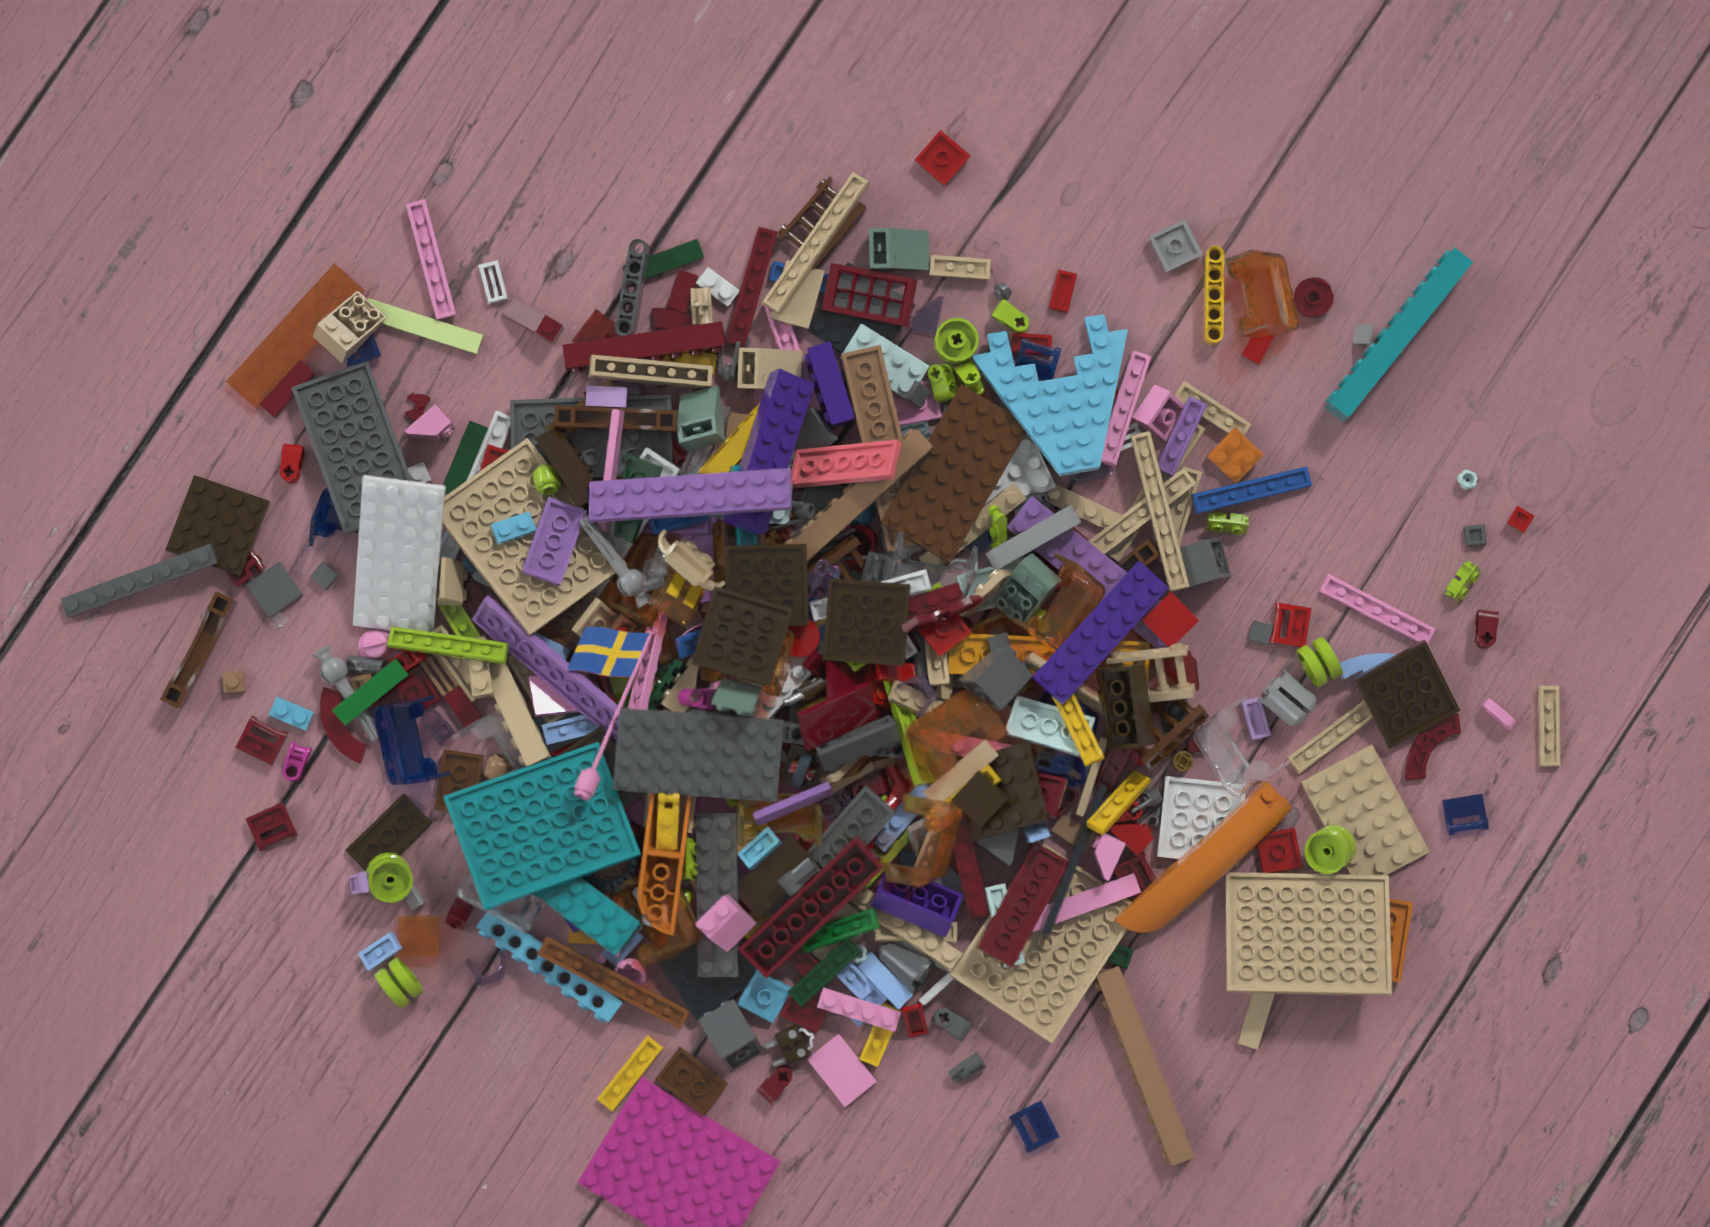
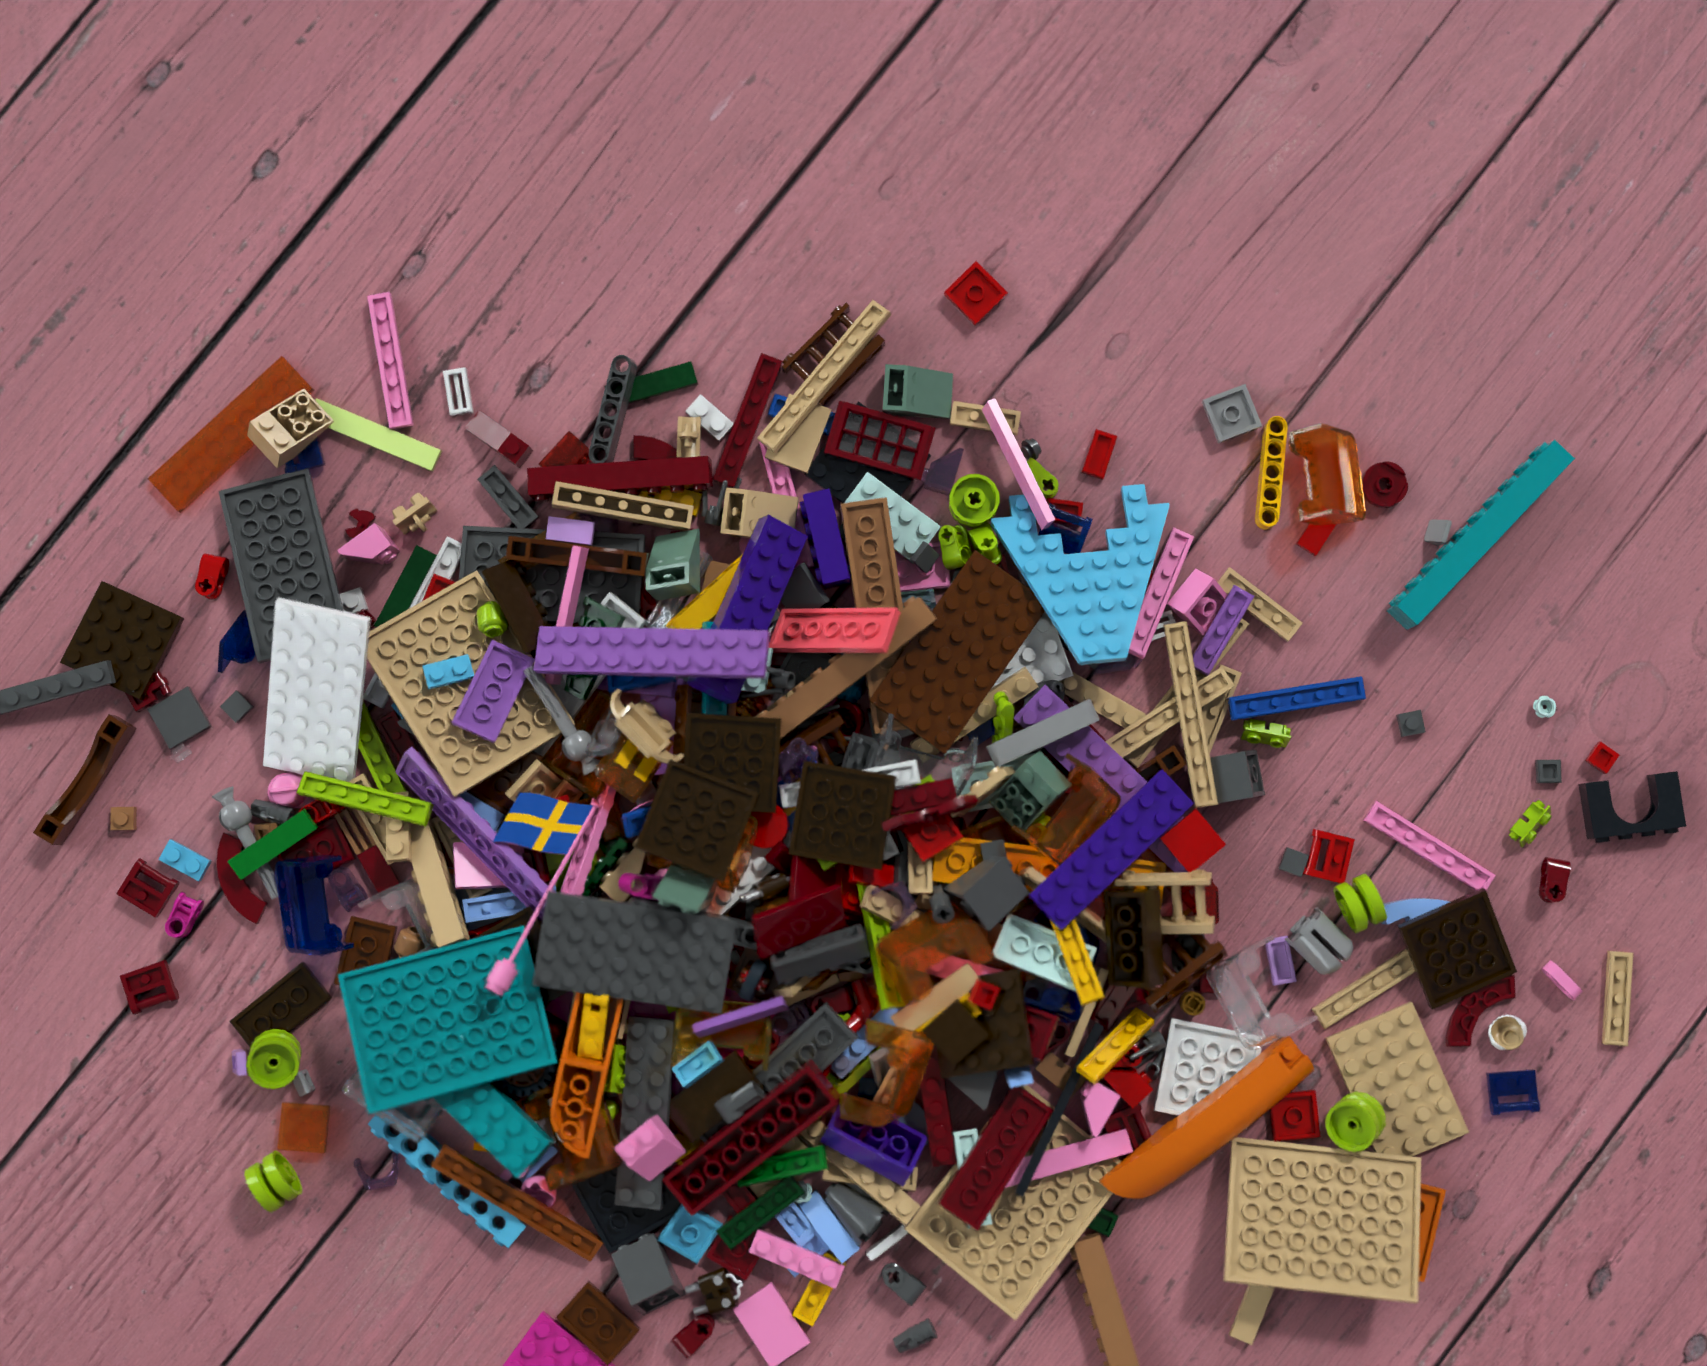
camera: 20 degrees right, 0 degrees up
(282, 392) = (208, 498): dark red tile -> none
(380, 951) = (257, 1141): light blue plate -> none
(450, 582) = (375, 727): tan slope -> none
(459, 913) = (348, 1110): dark red bracket -> none
(467, 395) = (415, 516): none -> tan hips
(546, 372) = (508, 498): none -> dark grey plate
(630, 1073) = (529, 1306): yellow tile -> none
(681, 291) = (667, 421): dark red tile -> none
(914, 1020) = (859, 1274): red slope -> none
(958, 693) = (941, 905): none -> dark grey hinge
(992, 306) = (1018, 464): none -> bright pink tile
(1001, 764) = (983, 994): none -> red plate
(1235, 455) = (1281, 656): orange plate -> none
(1352, 503) = (1410, 723): none -> dark grey plate
(1455, 763) = (1507, 1032): none -> tan hair
(1525, 575) = (1664, 814): none -> black arch

